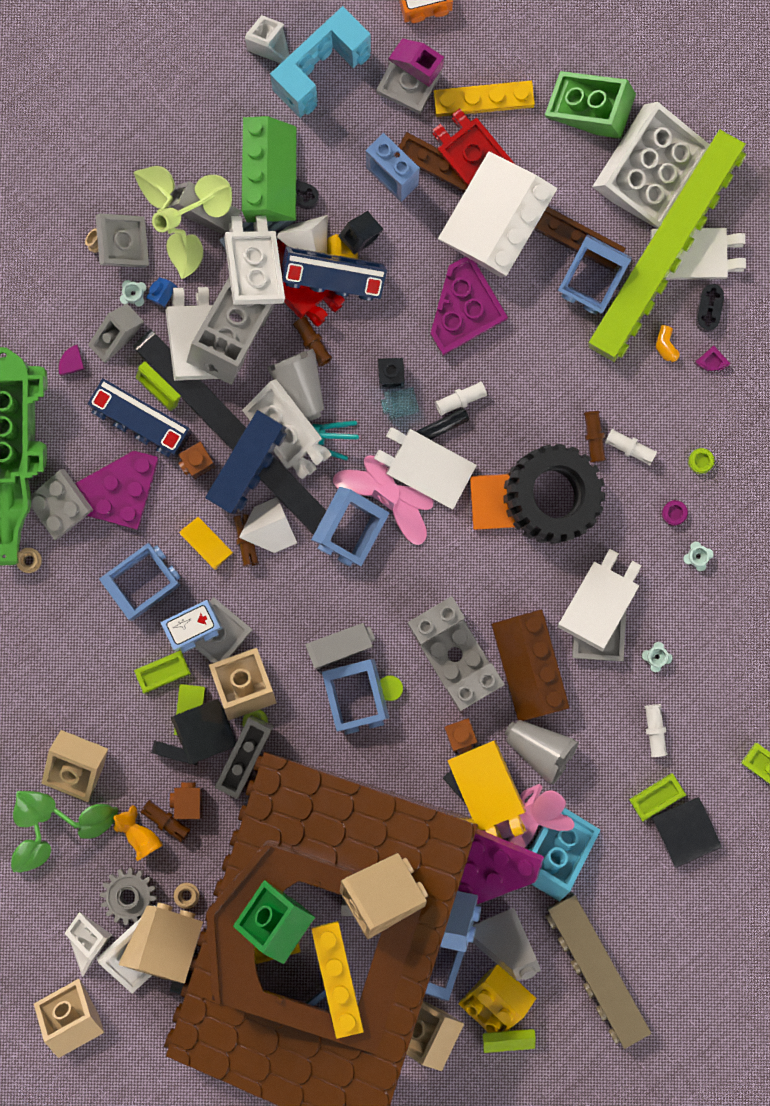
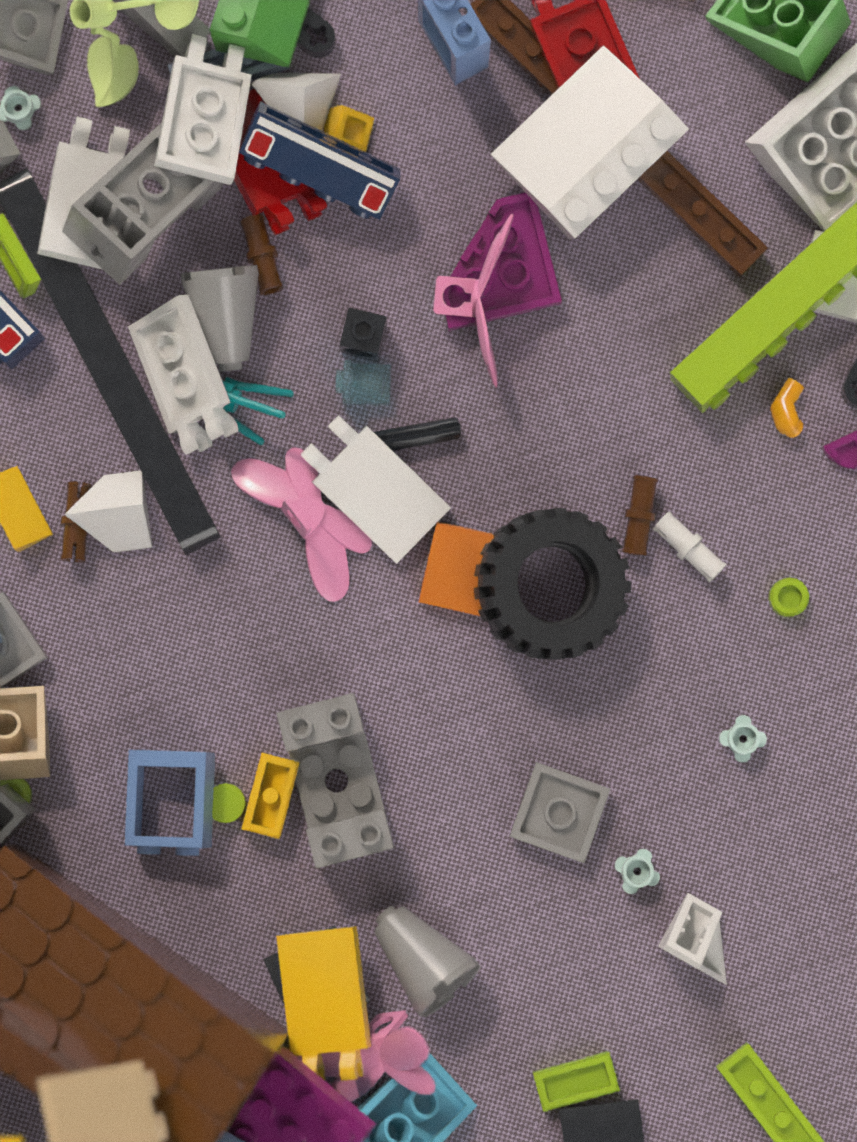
camera: 15 degrees right, 0 degrees up
(161, 291) = (58, 117): blue plate -> none
(196, 461) = (36, 383): dark orange brick -> none
(246, 463) = (107, 406): dark blue brick -> none
(332, 518) = (212, 523): medium blue window -> none
(340, 645) = (167, 718): light grey slope -> none
(360, 232) = (379, 113): black brick -> none
(417, 675) = (270, 795): none -> yellow slope
(456, 336) = (476, 288): none -> bright pink piece
(460, 736) = (308, 905): dark orange brick -> none
(461, 398) = (457, 402): white pin -> none
(530, 665) = (443, 830): reddish brown slope -> none
(600, 602) = (575, 766): white tile -> none
(612, 254) = (737, 245): medium blue window -> none
(656, 730) = (602, 981): white pin -> none
(674, 513) = (726, 663): magenta tile -> none
(705, 687) = (696, 937): none -> white slope

